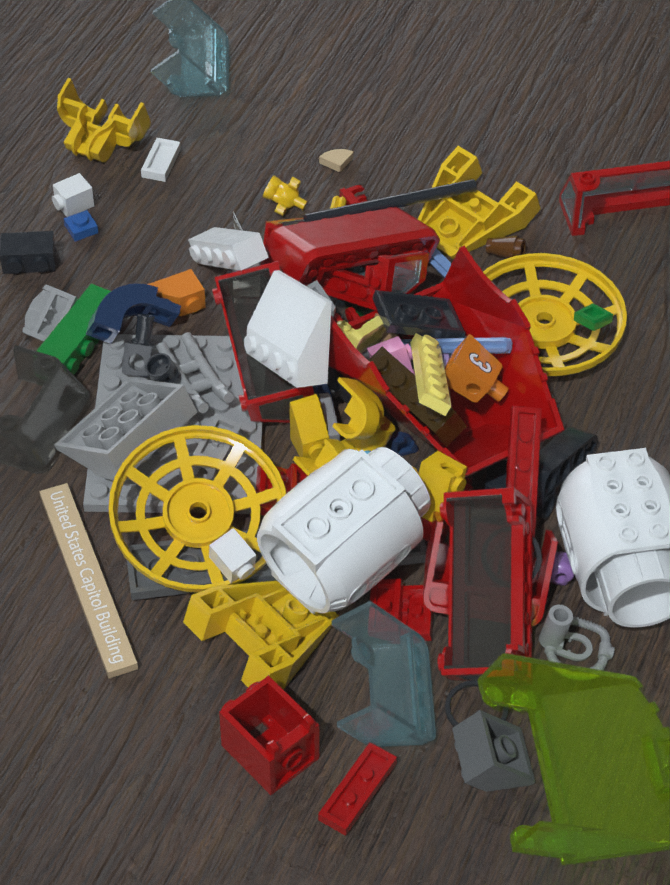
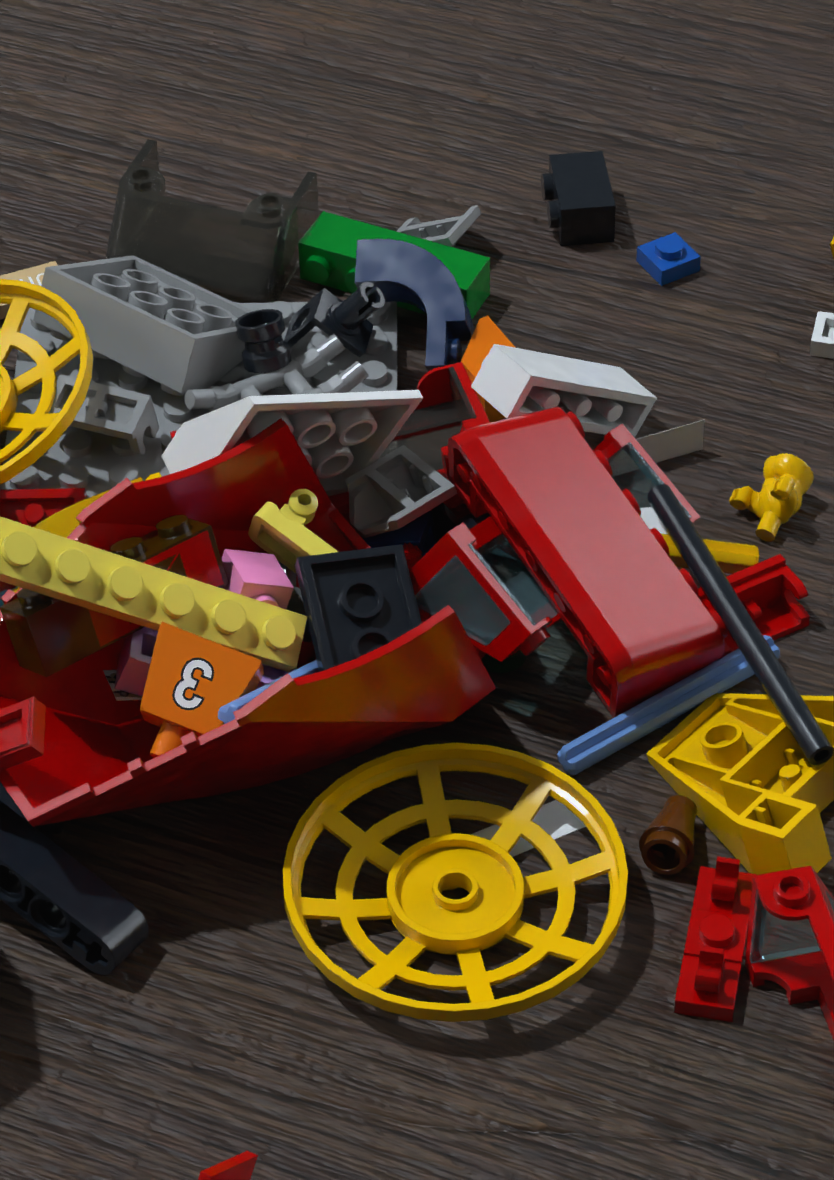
camera: 90 degrees right, 5 degrees down
(73, 195) = (731, 235): white brick -> none
(564, 240) = (715, 942): none -> red plate
(593, 317) = (417, 935): green tile -> none

